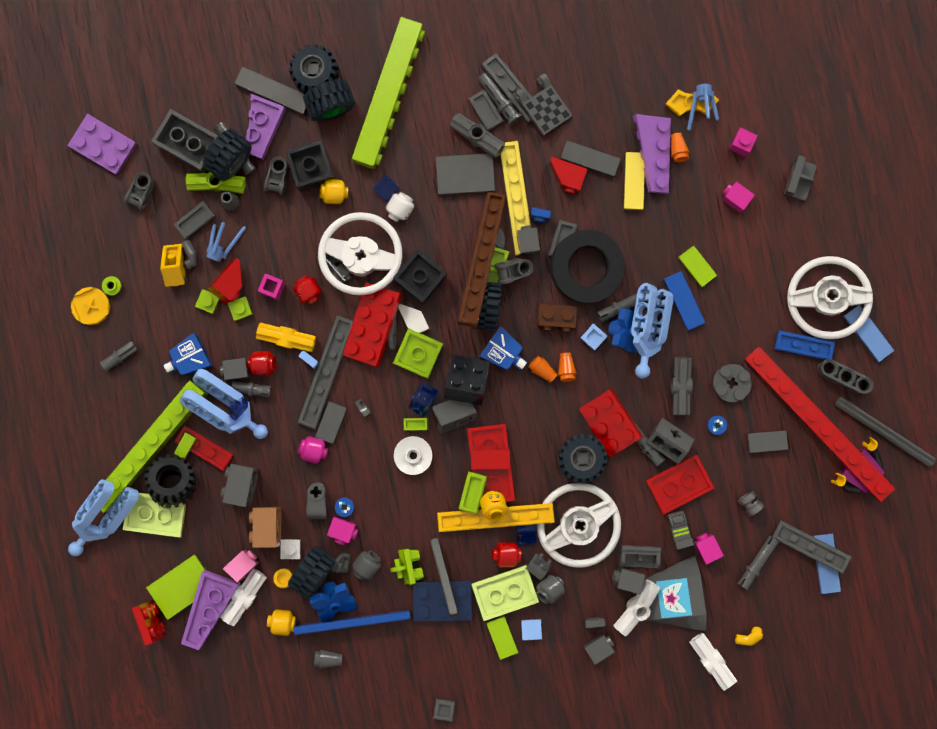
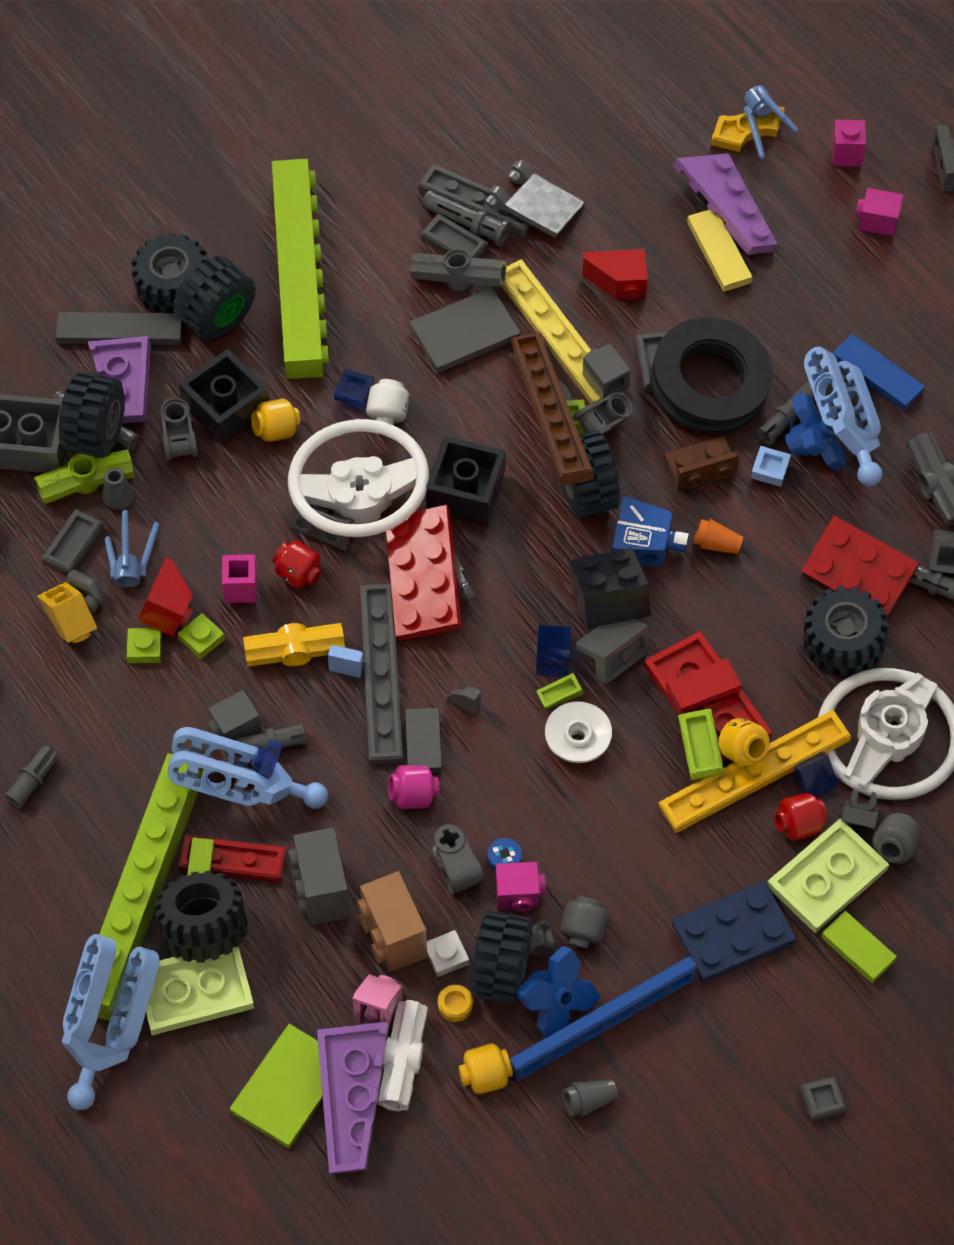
camera: 25 degrees left, 25 degrees down
(148, 622) = (262, 1141): red plate -> none
(188, 357) = (147, 730): blue torso -> none
(262, 363) = (273, 693): red head -> none
(404, 567) = (649, 899): lime hips -> none
(413, 318) = (483, 548): white tile -> none
(418, 353) = (513, 588): lime tile -> none
(444, 578) = (721, 883): dark grey tile -> none
(531, 629) = (899, 915): light blue tile -> none
(540, 215) = (605, 333): blue plate -> none
(566, 368) = (753, 523): orange cone -> none
(590, 158) = (658, 243): dark grey tile -> none
(679, 149) = (762, 185): orange cone -> none
(697, 266) = (871, 321): lime tile -> none

